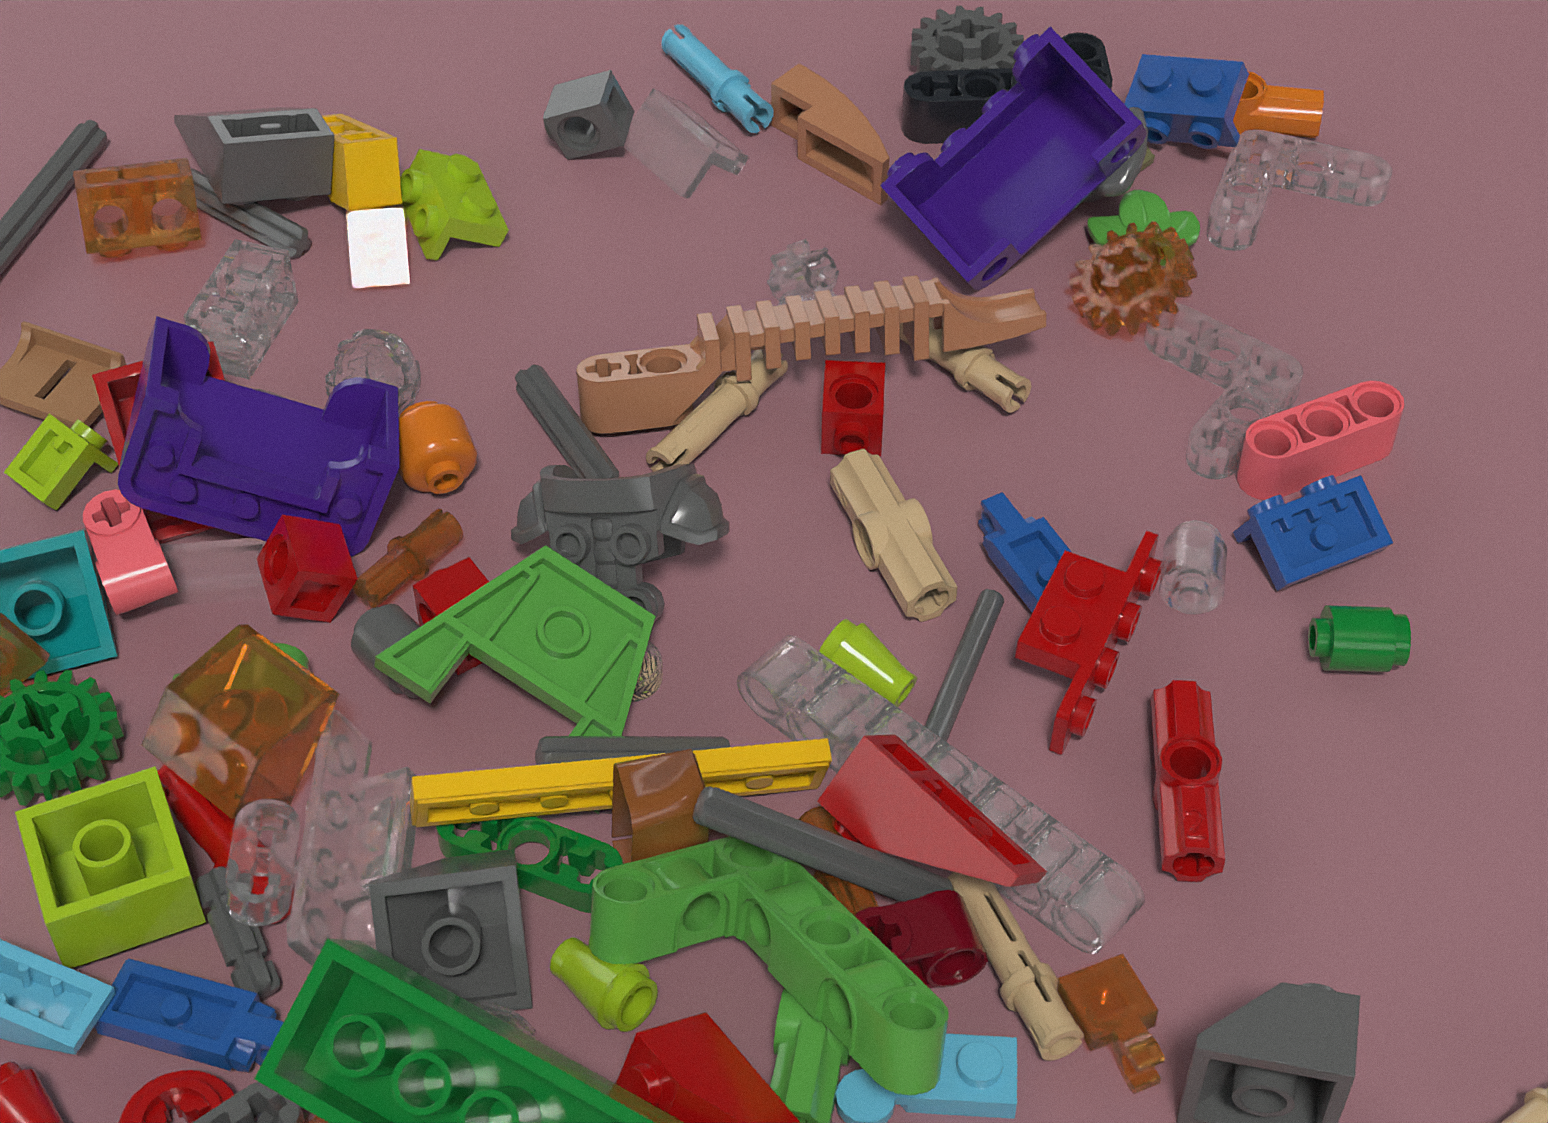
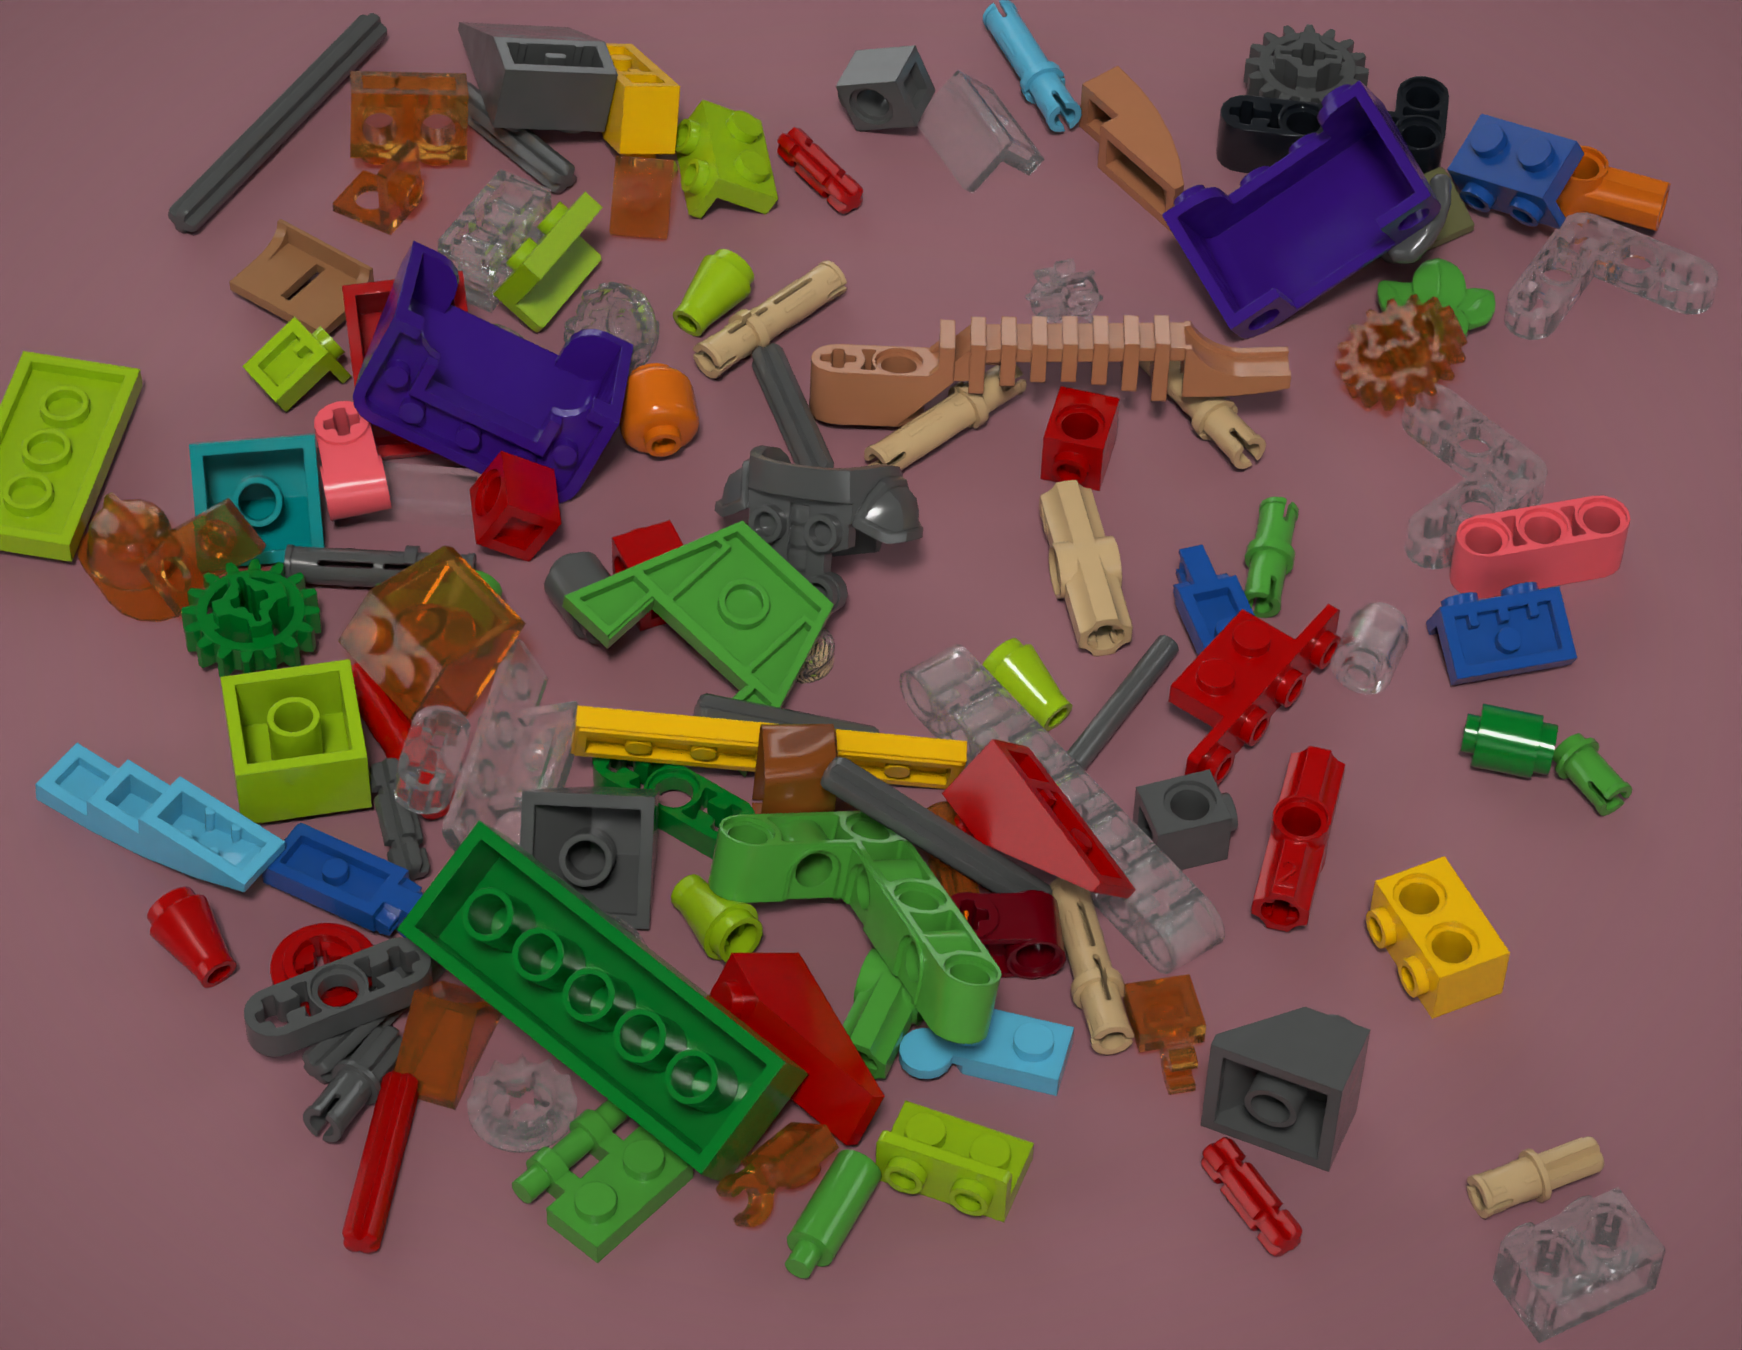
camera: 10 degrees right, 0 degrees up
(102, 661) = (312, 563): none -> dark grey pin
(138, 277) = (398, 191): none -> clear orange bracket
(301, 327) = (553, 267): none -> lime bracket
(409, 557) = (614, 512): clear orange axle -> none
(465, 324) = (715, 289): none -> lime cone
(519, 347) = (763, 323): none -> tan pin
(542, 199) = (820, 170): none -> red axle
(1067, 491) = (1270, 556): none -> bright green pin
(1073, 757) = (1187, 818): none -> dark grey brick
(1368, 854) = (1437, 937): none -> yellow brick
(1448, 657) = (1588, 770): none -> bright green pin

